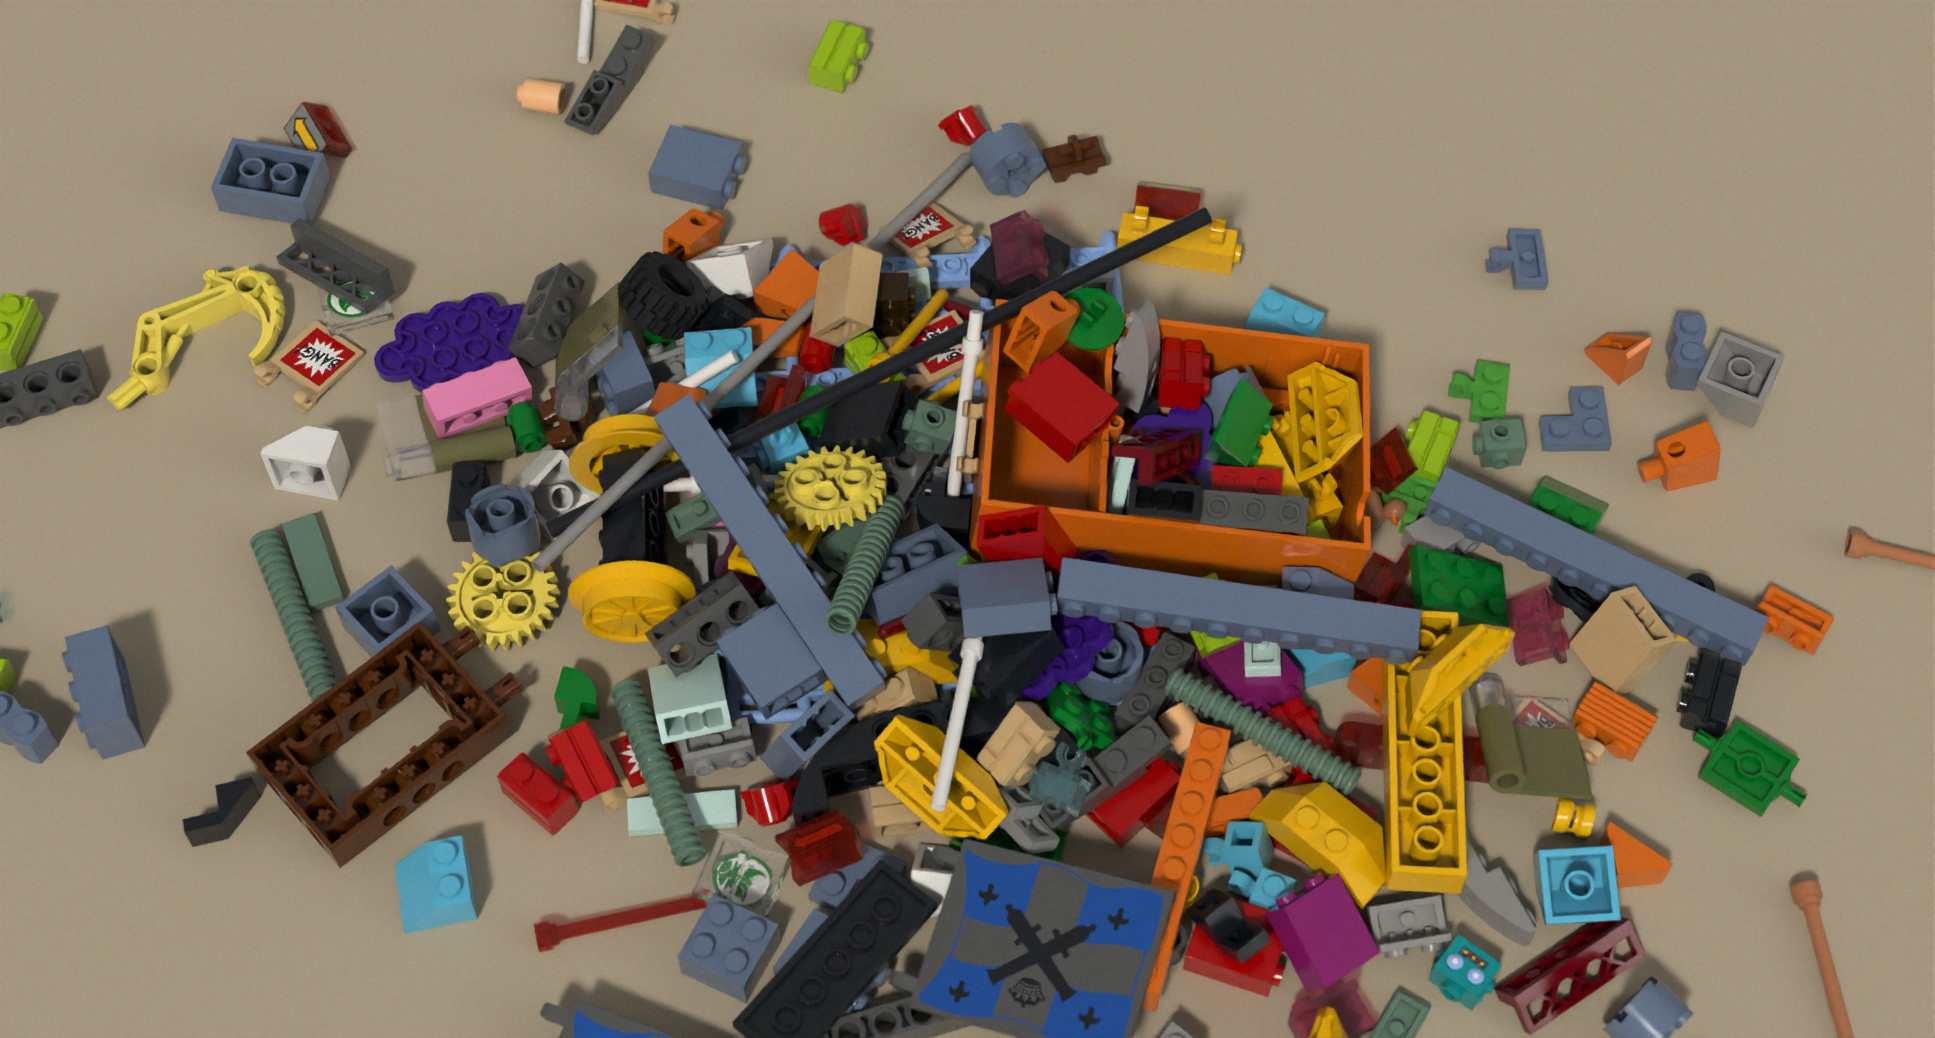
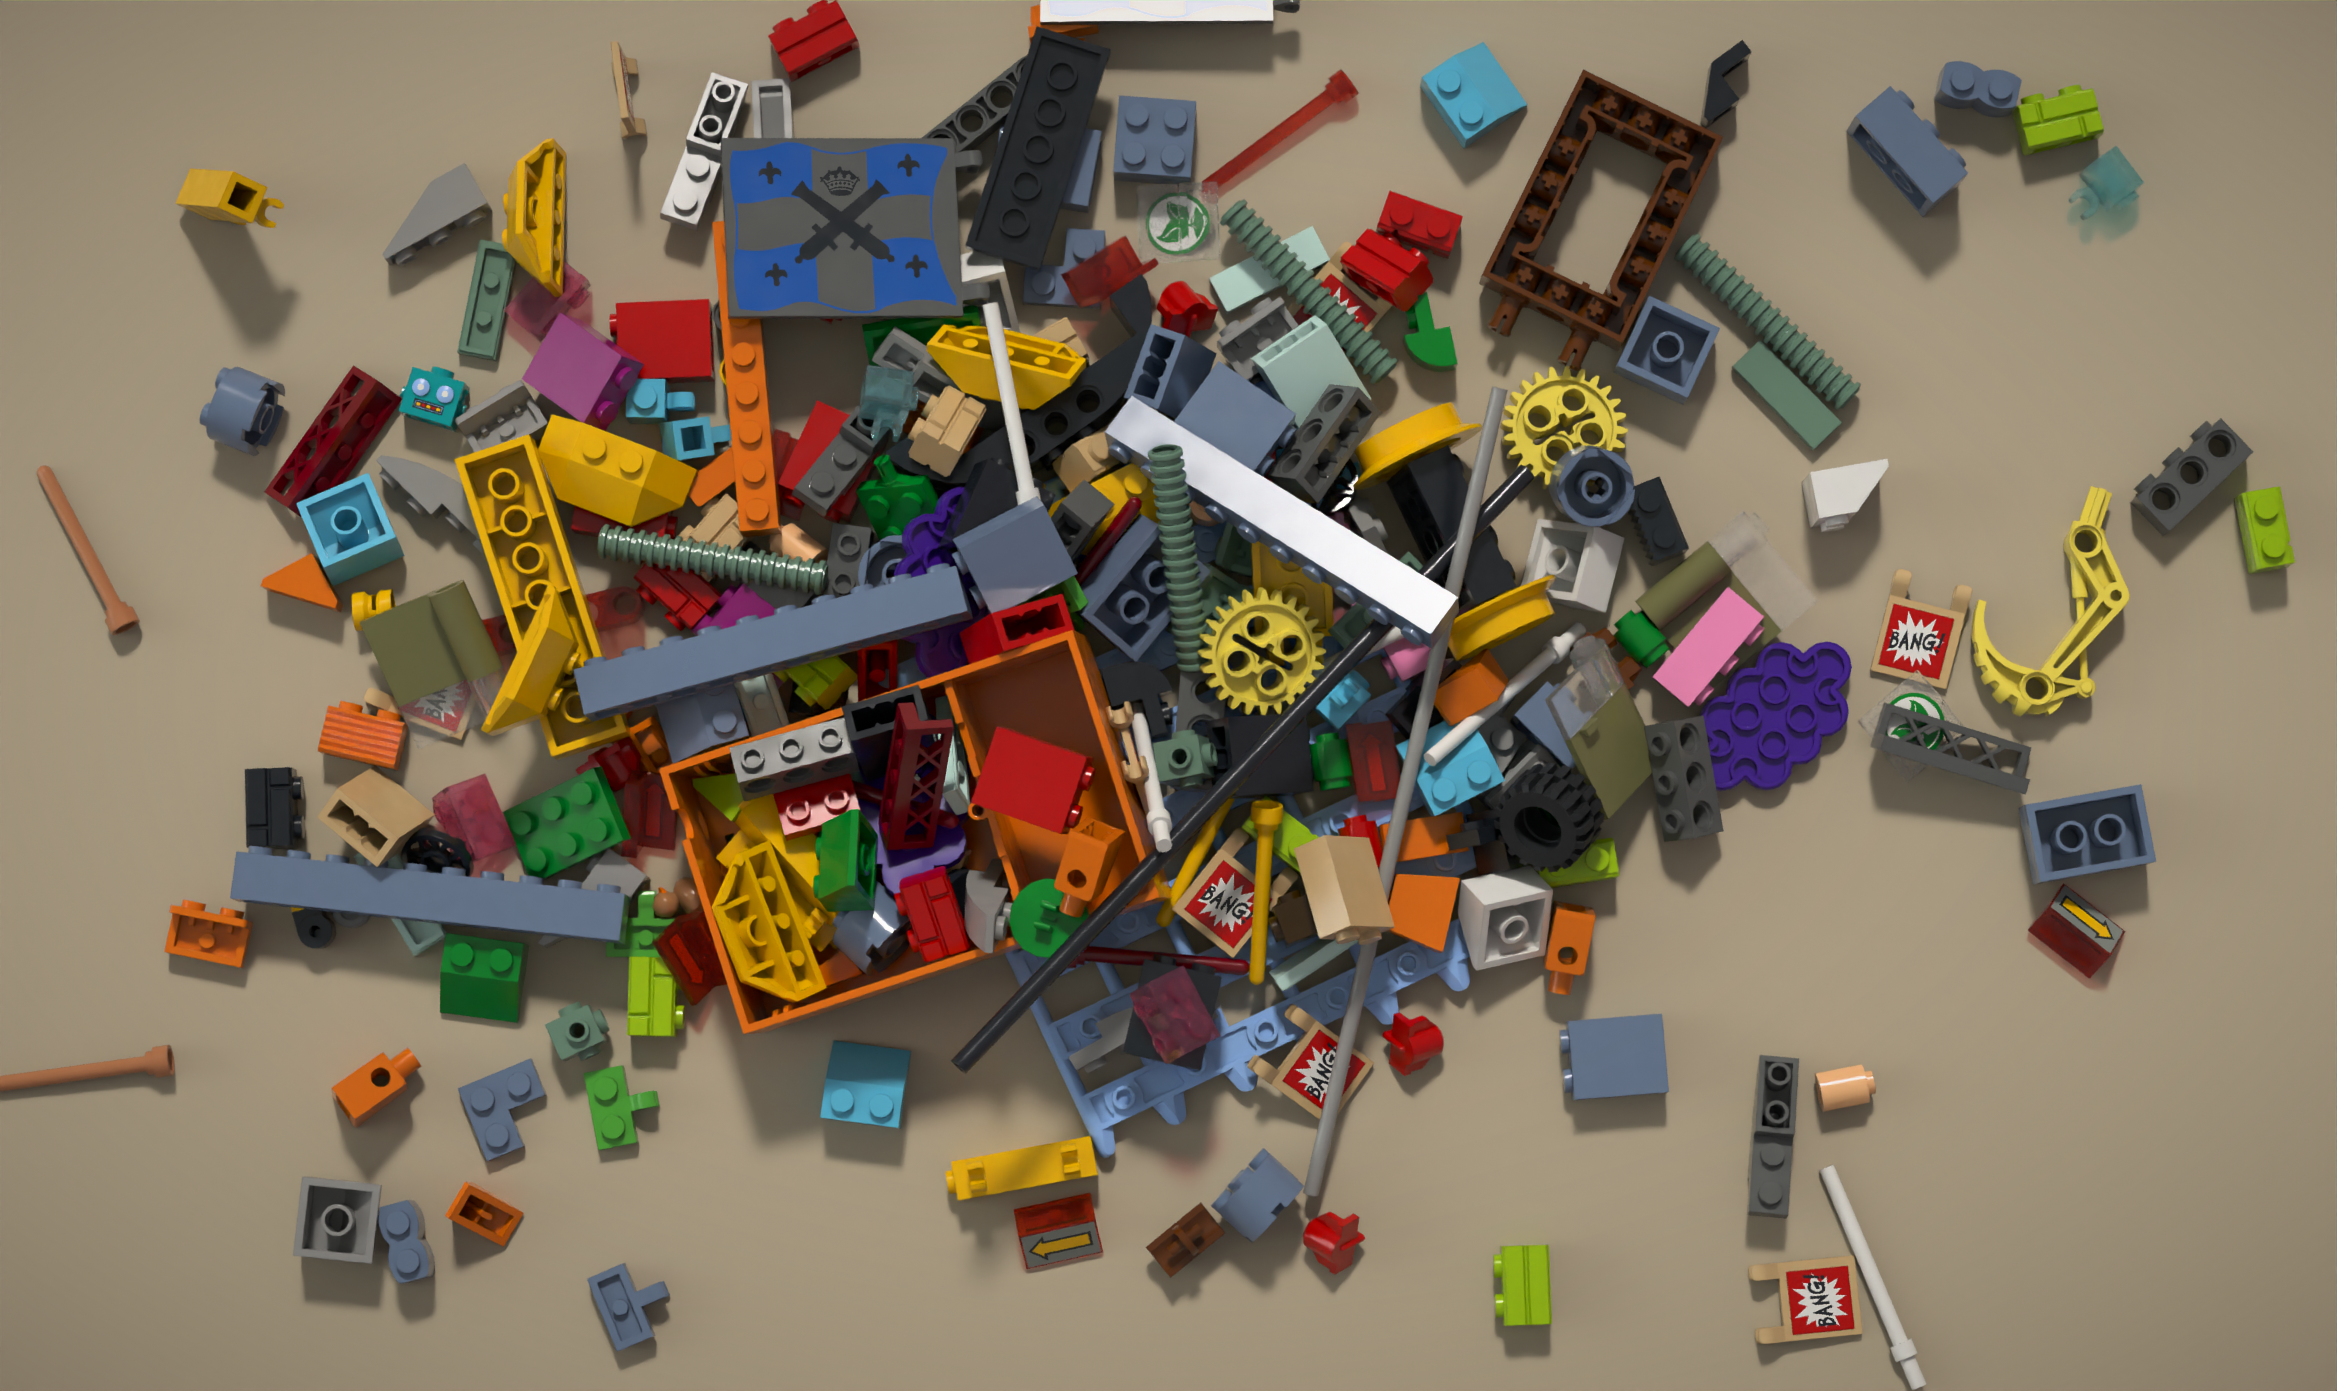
camera: 160 degrees right, 25 degrees up
(1226, 927) = (675, 337): black slope -> none
(1749, 768) = (211, 739): green plate -> none

